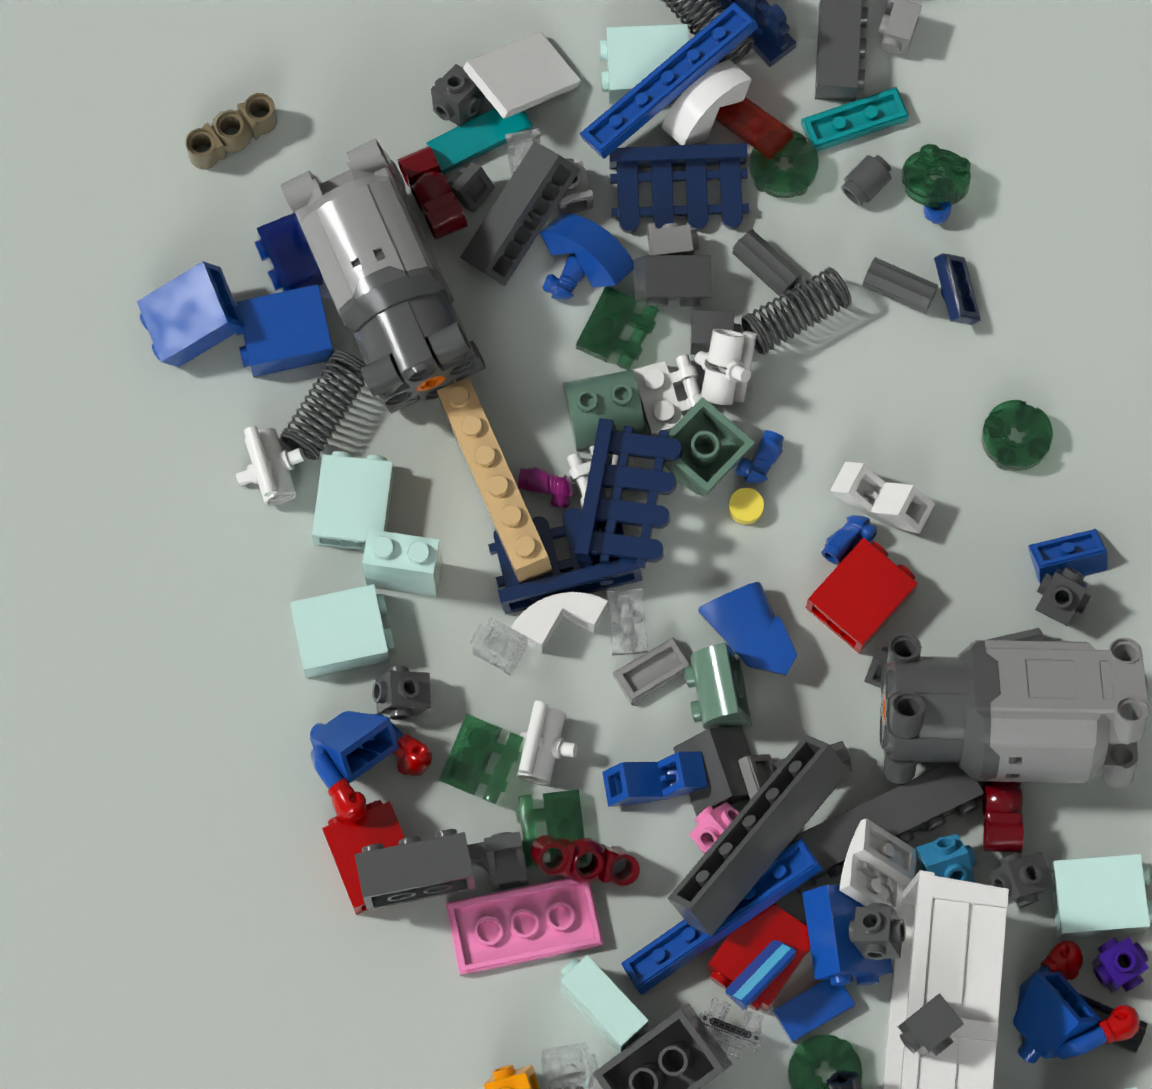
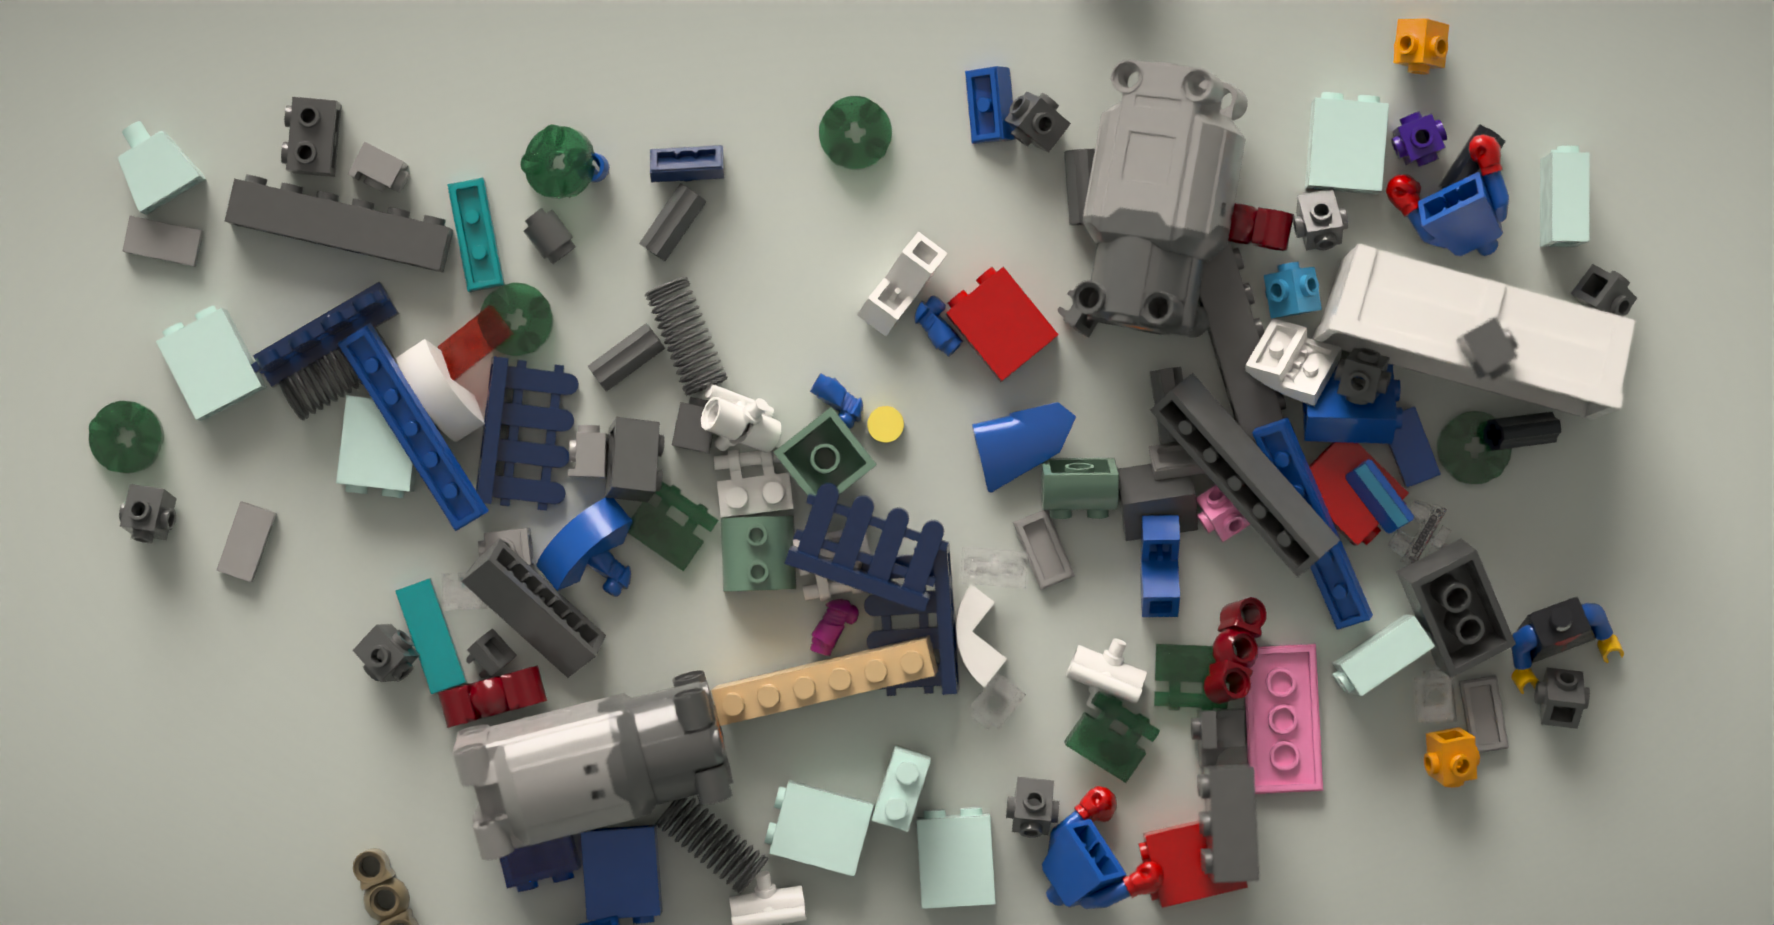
camera: 80 degrees left, 15 degrees up
(521, 74) = (375, 581): white tile -> none

